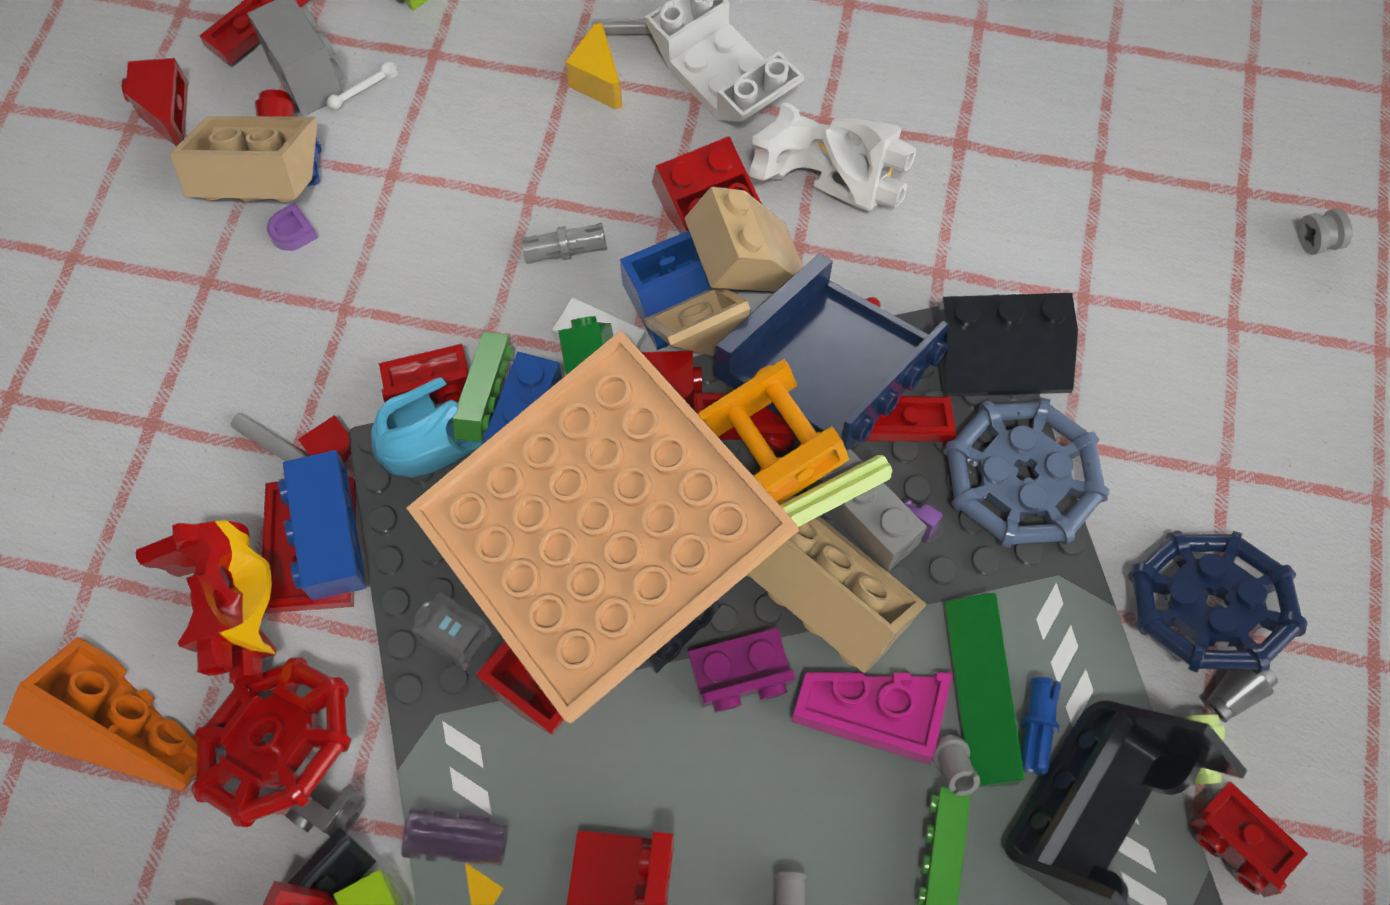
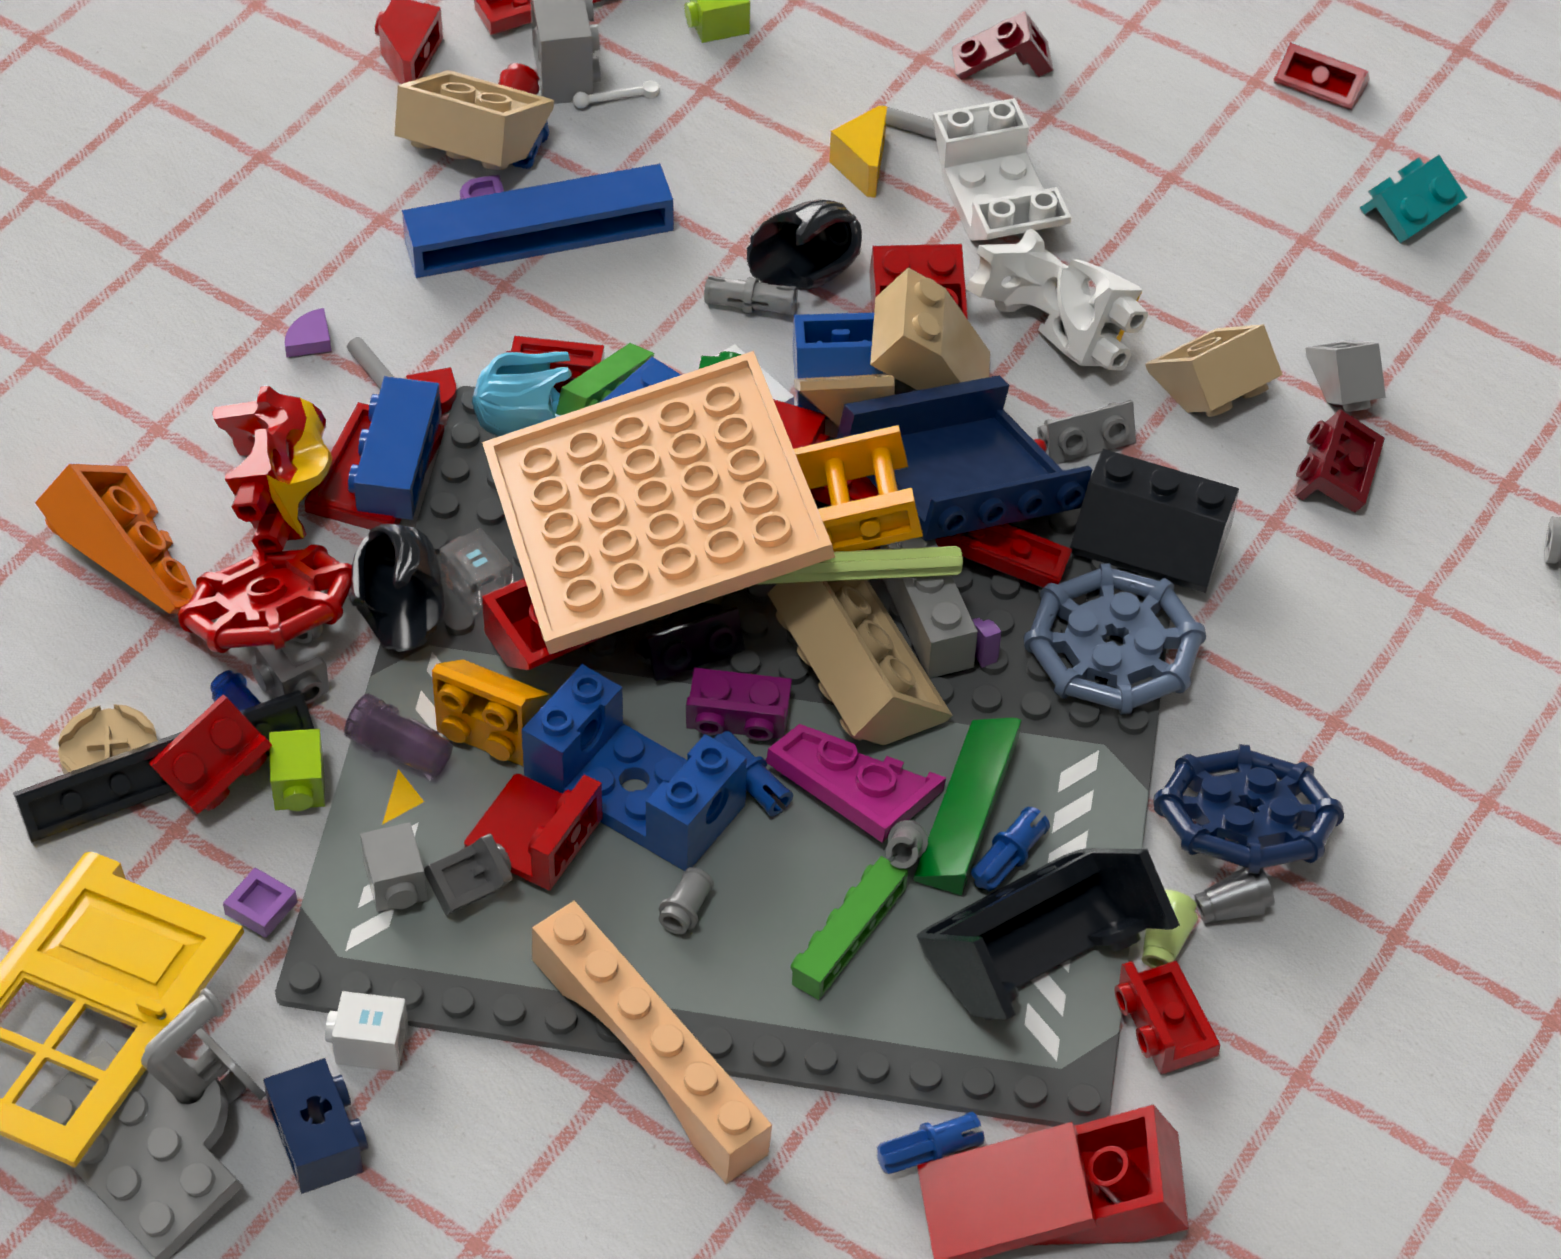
camera: 20 degrees right, 15 degrees down
(190, 428) = (308, 335): none -> medium lavender tile
(282, 850) = (234, 688): none -> clear blue pin
(347, 237) = (538, 220): none -> blue brick
(388, 682) = (398, 586): none -> black hair
(527, 777) = (484, 708): none -> light orange slope
(593, 180) = (805, 245): none -> black hair
(634, 779) = (684, 799): none -> blue plate
(783, 739) = (759, 780): none -> blue axle
(911, 263) = (1089, 432): none -> light grey hinge
(977, 171) = (1218, 368): none -> tan slope
(1081, 136) = (1348, 373): none -> light grey slope
(1113, 224) = (1340, 461): none -> dark red bracket

